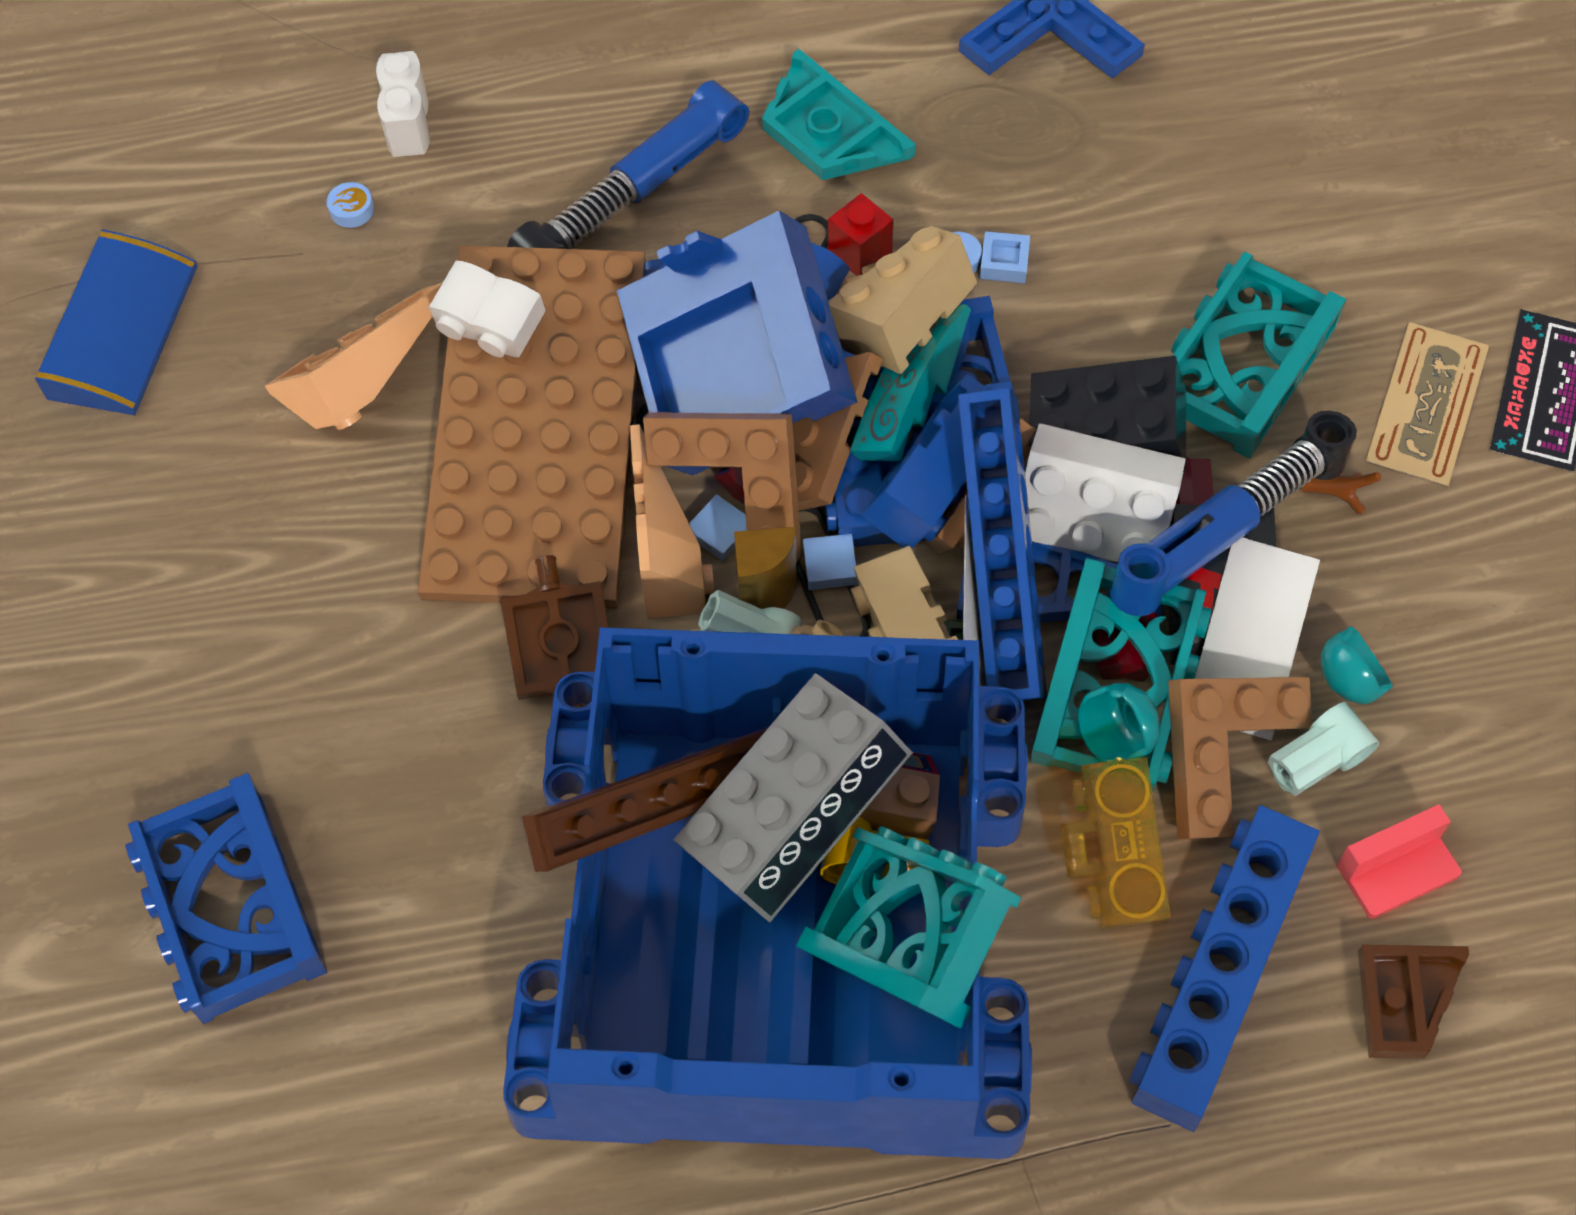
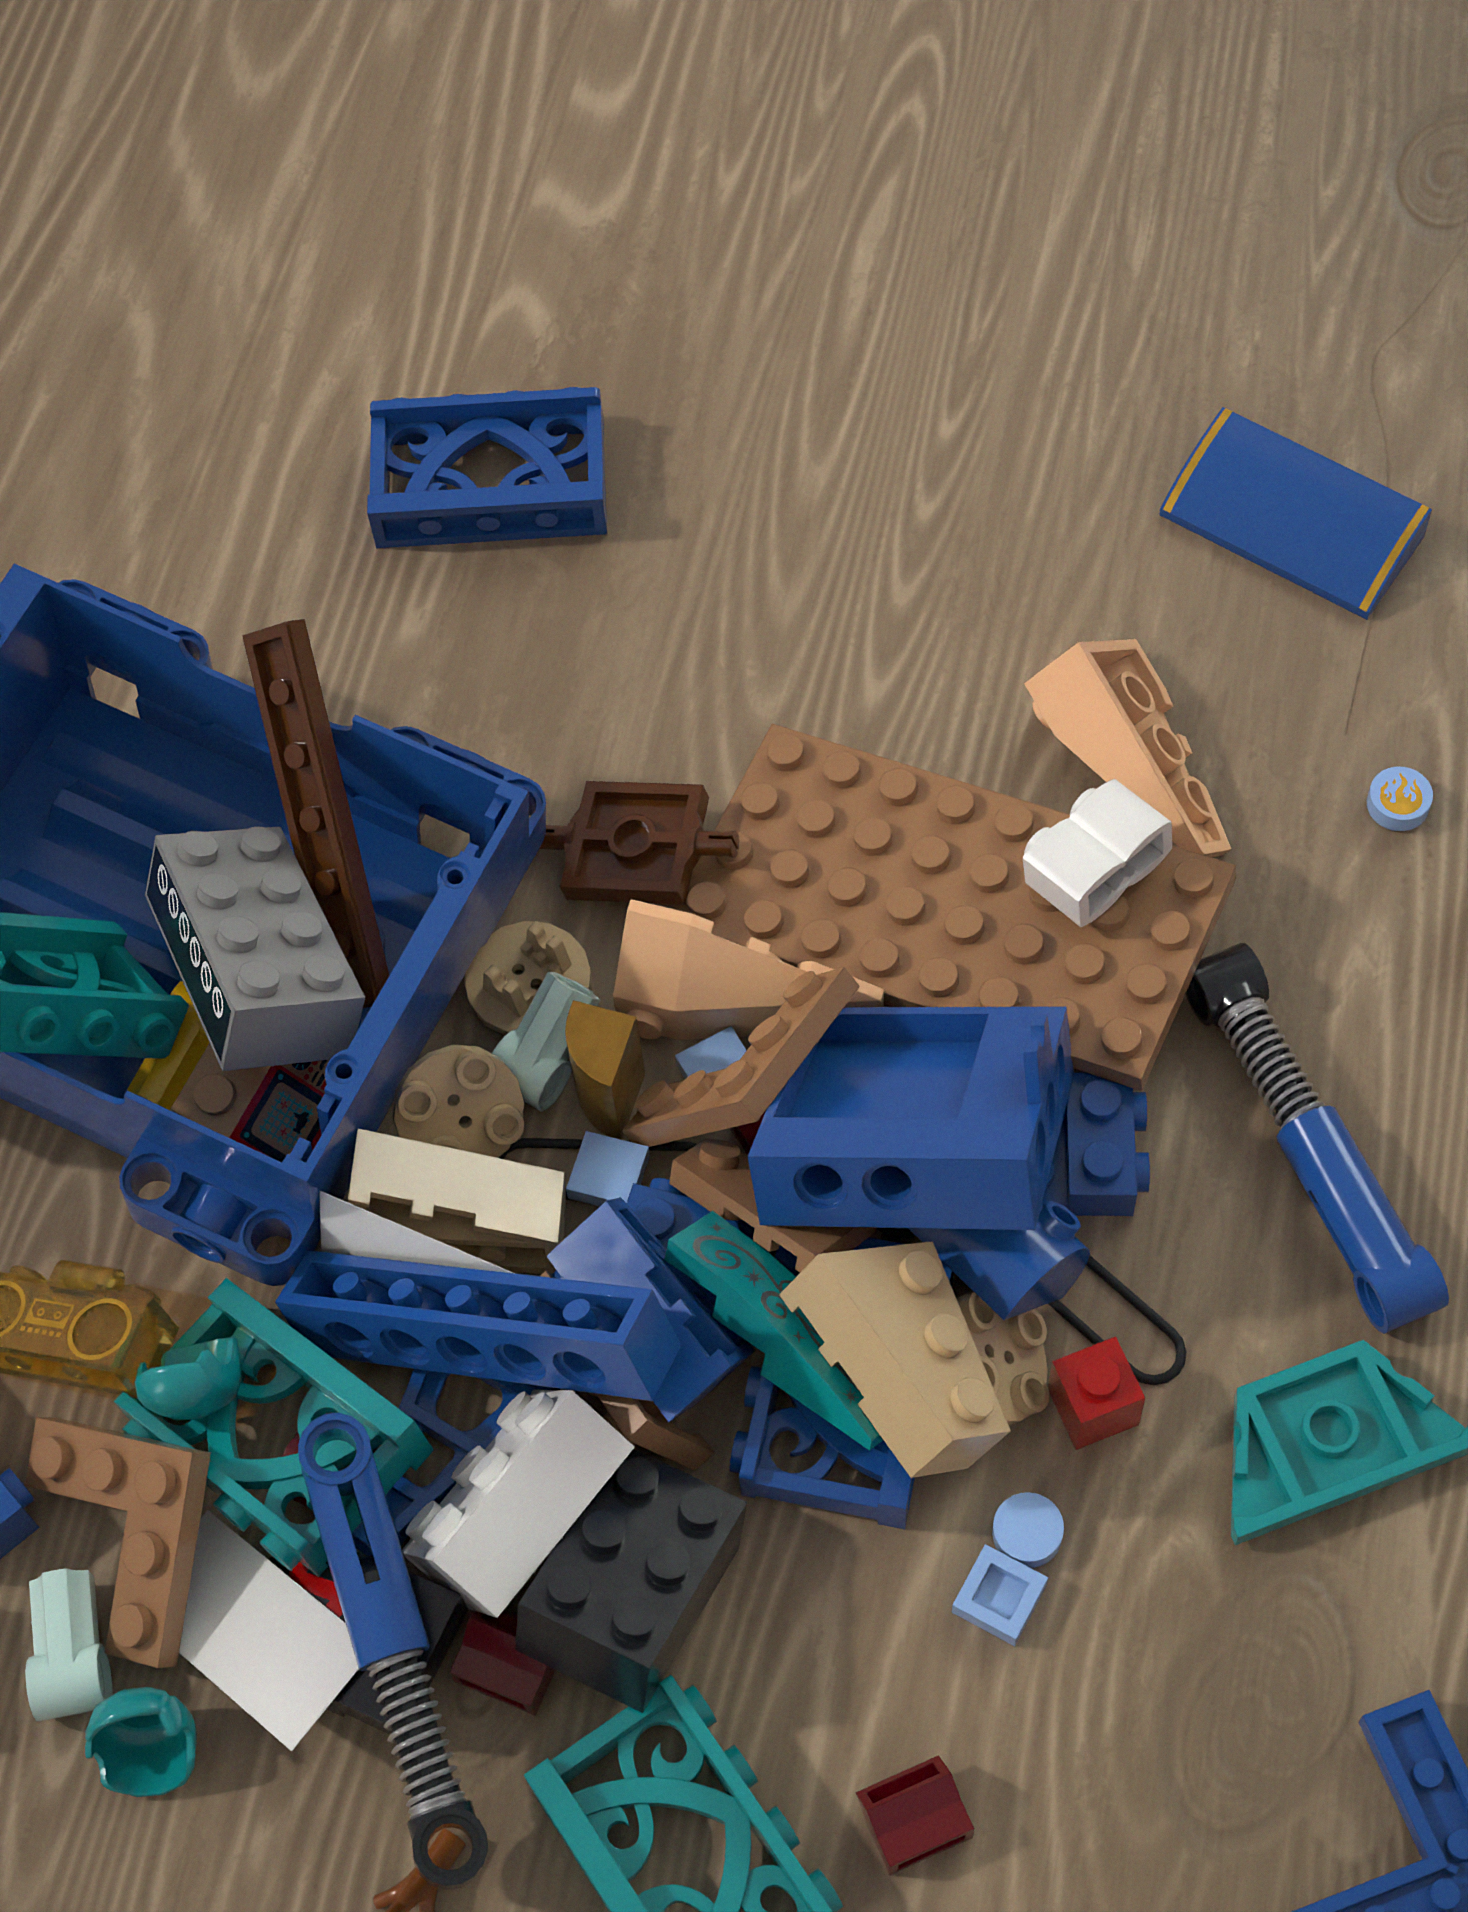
camera: 115 degrees right, 0 degrees up
(1158, 250) = (915, 1814): none -> dark red piece

